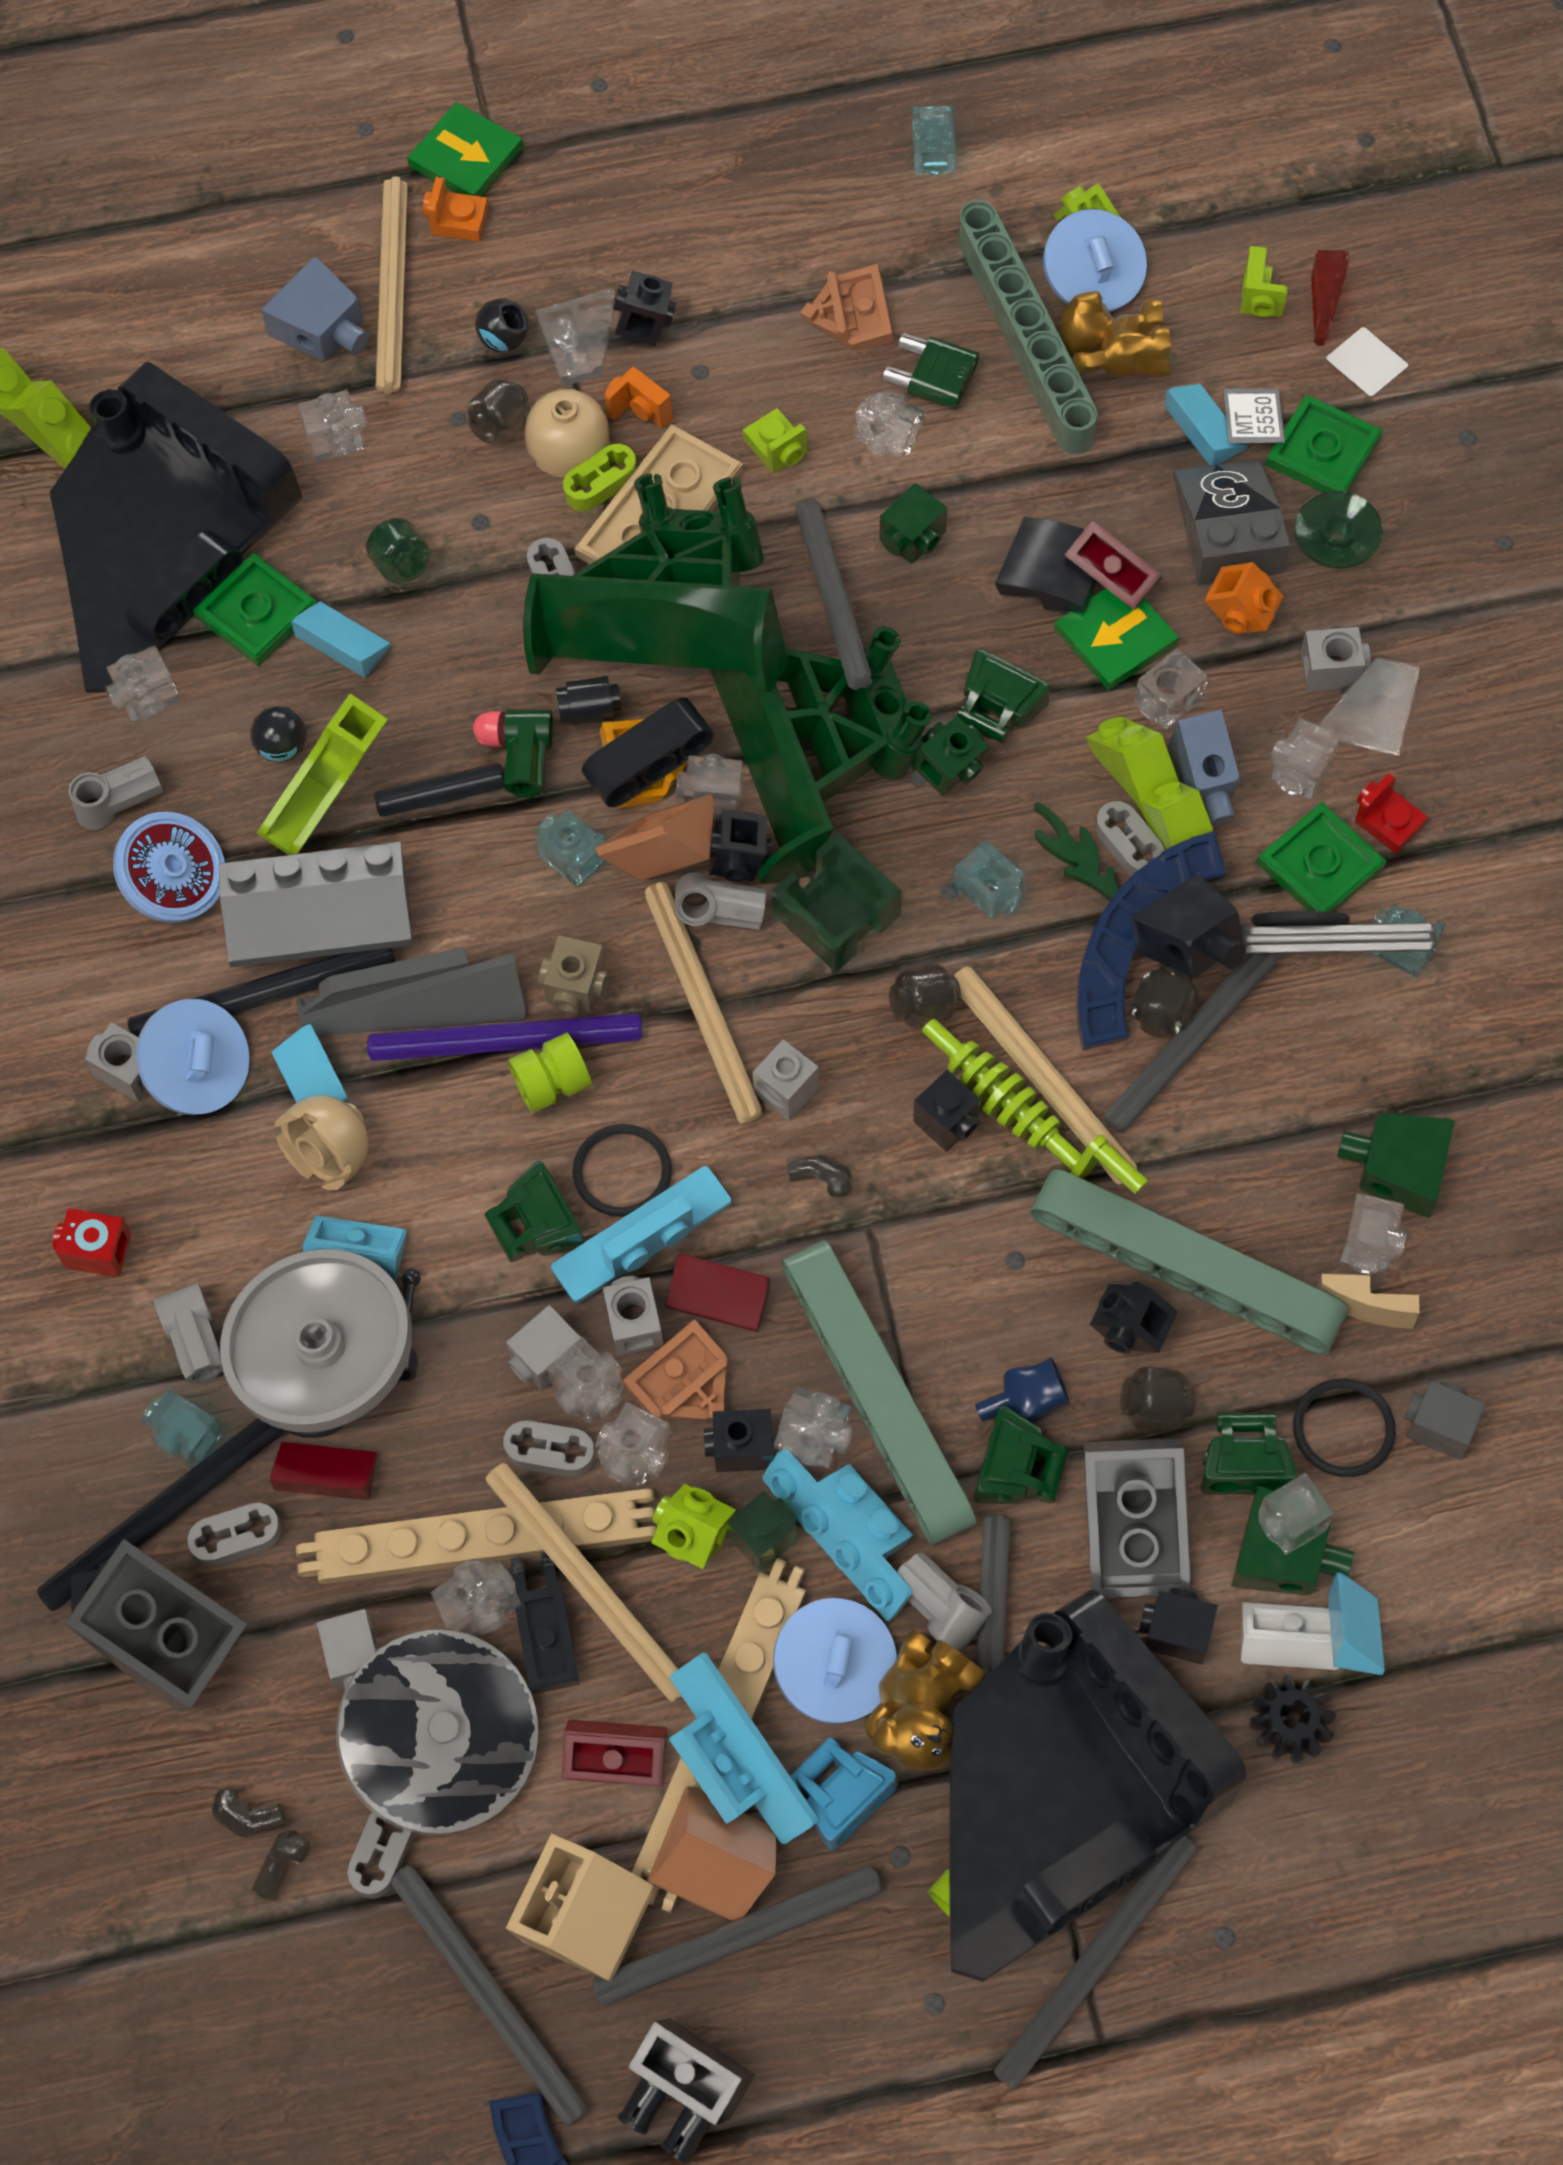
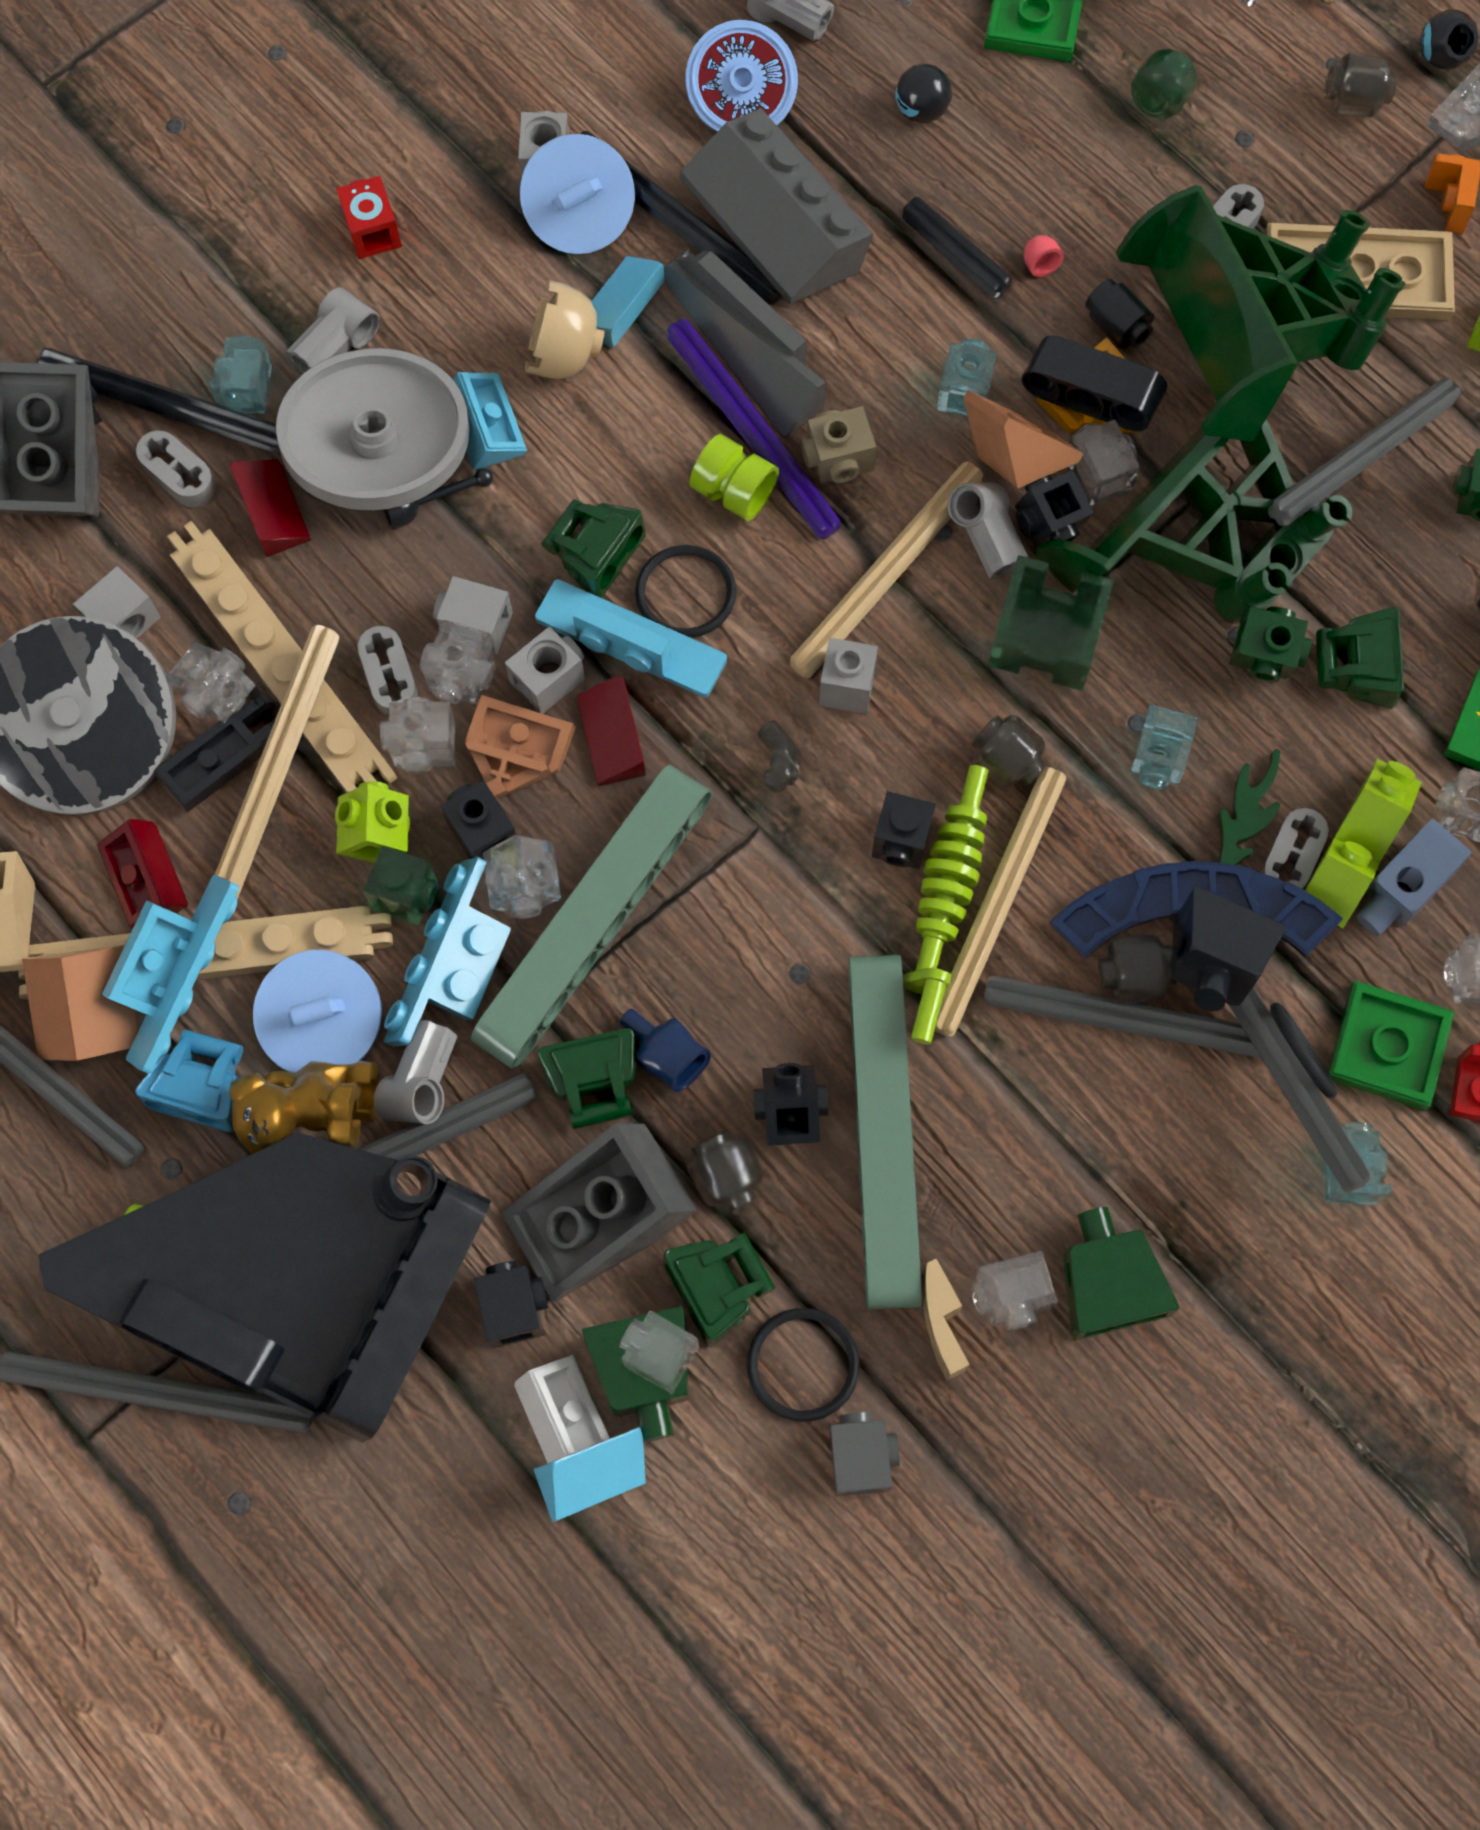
camera: 60 degrees right, 5 degrees up
(322, 775) = (893, 142): lime arch -> none
(340, 638) = (1051, 91): medium azure slope -> none
(527, 739) = (1050, 286): dark green piece -> none
(565, 430) = (1380, 153): tan cylinder -> none
(599, 477) = (1357, 197): lime beam -> none
(1274, 1712) = (461, 1474): black gear -> none

